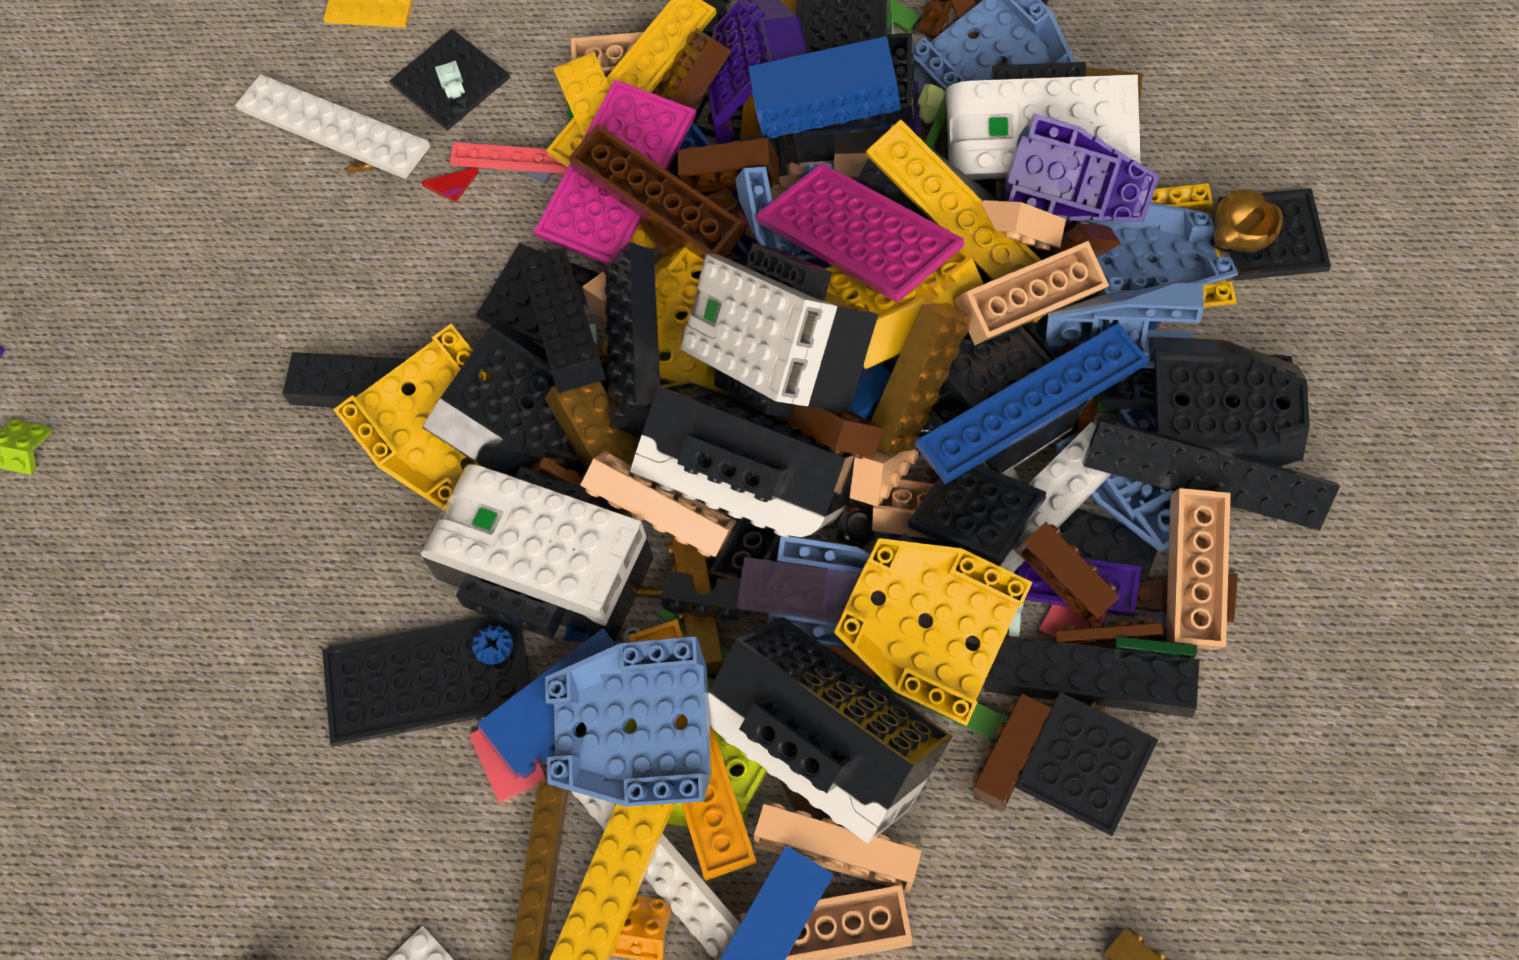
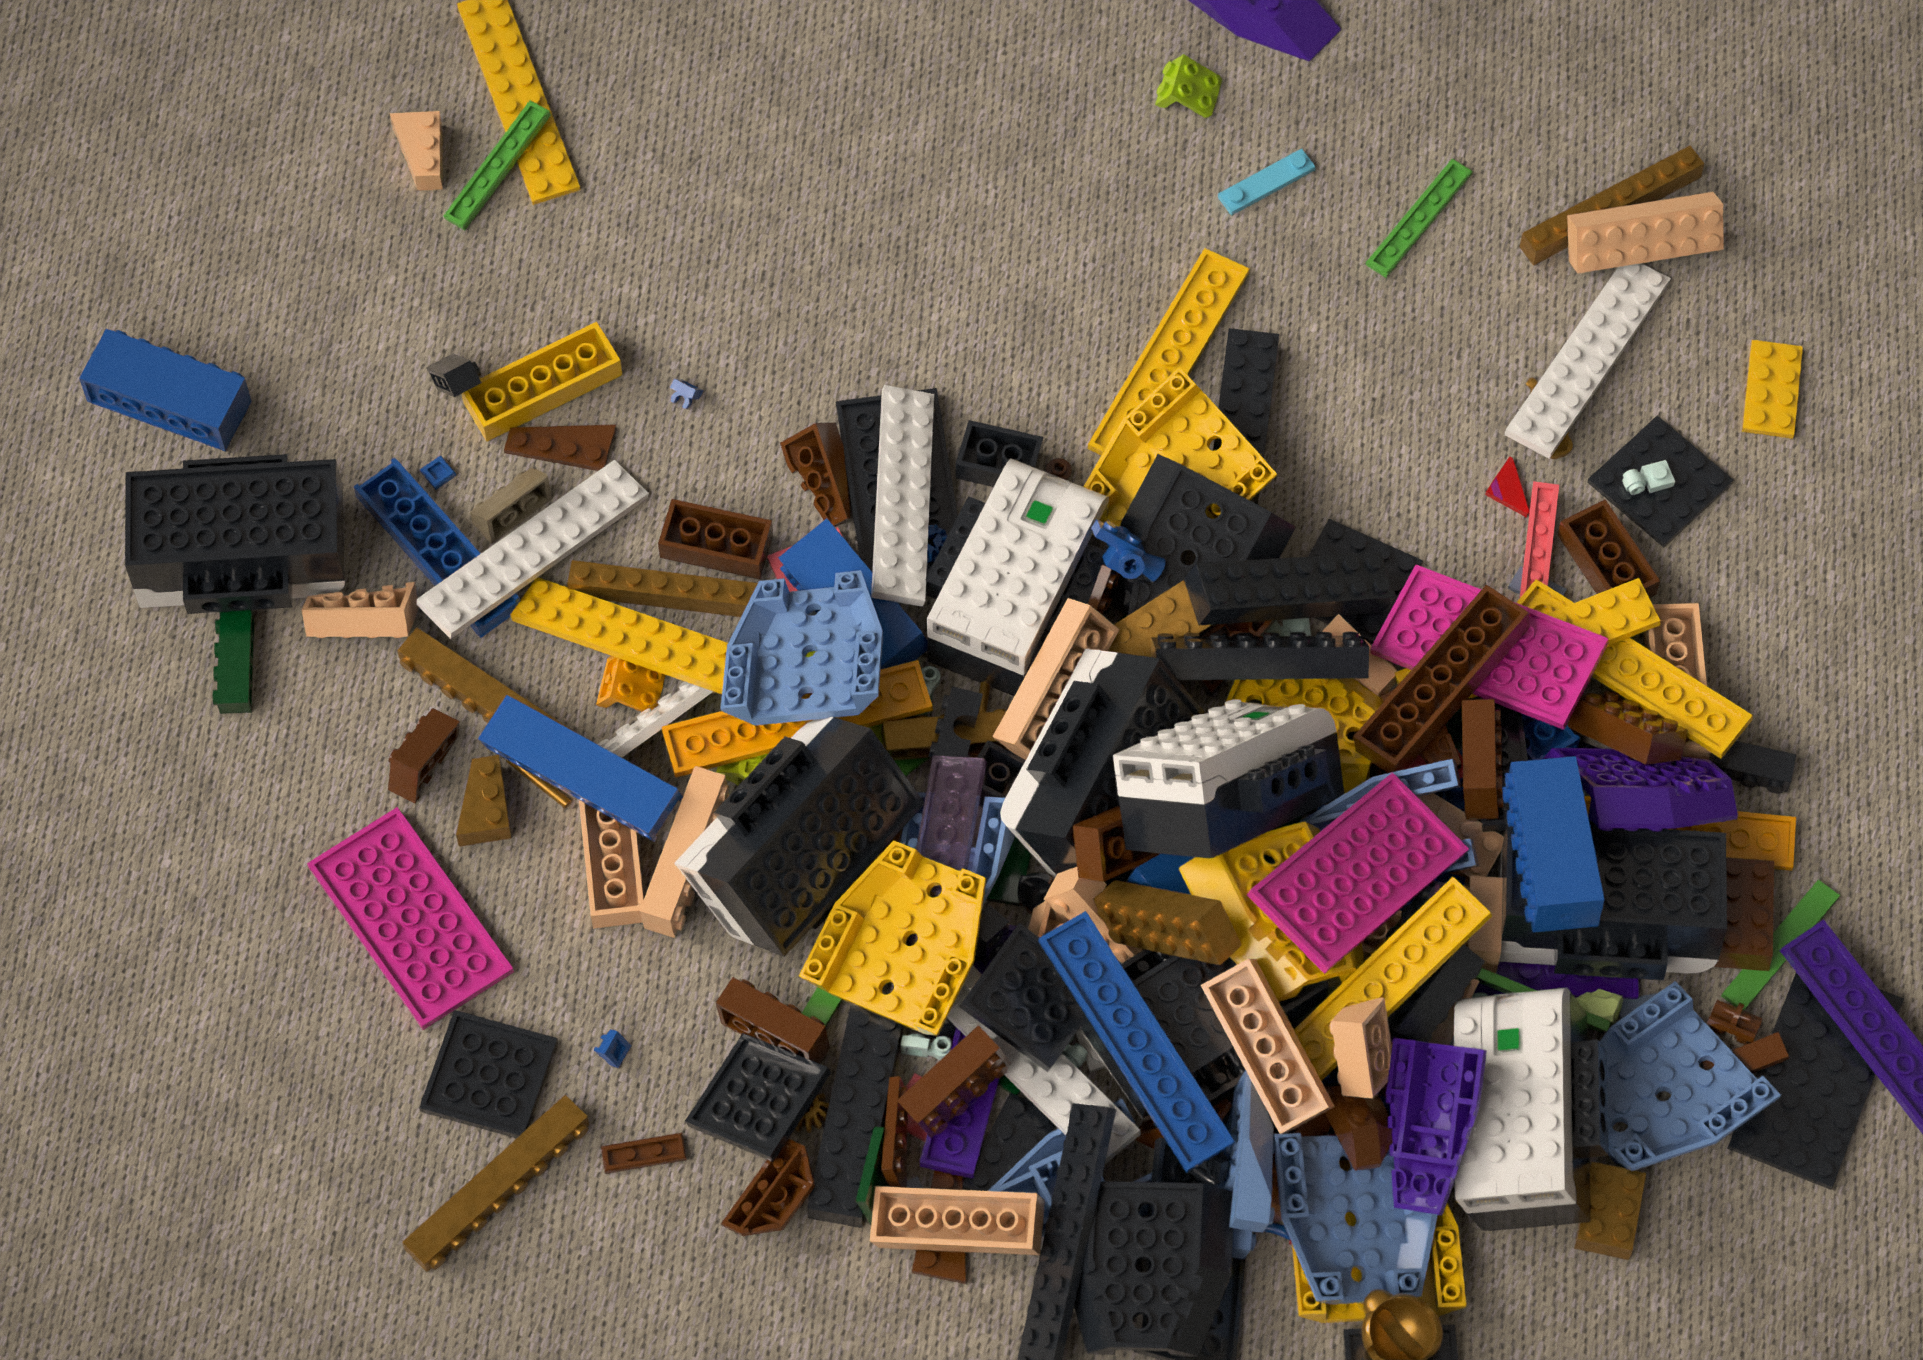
camera: 85 degrees right, 0 degrees up
(128, 378) = (1266, 182): none -> medium azure plate
(180, 258) = (1419, 218): none -> bright green tile
(187, 114) = (1643, 187): none -> pearl gold brick
(219, 82) = (1645, 232): none -> light nougat brick
(300, 448) = (1178, 337): none -> yellow plate
(305, 895) = (686, 390): none -> tile
(399, 753) = (820, 460): none -> reddish brown wedge
(401, 588) = (989, 448): none -> black brick
(418, 543) = (1058, 462): none -> reddish brown plate
(448, 660) = (903, 496): none -> white plate
(481, 849) = (715, 539): none -> reddish brown brick
(522, 107) = (1605, 550): none -> reddish brown brick
(529, 445) = (1126, 552): none -> blue brick
(1043, 911) = (613, 1048): none -> blue tile
(1147, 876) = (643, 1153): none -> reddish brown tile
(1189, 739) = (773, 1193): none -> reddish brown wedge

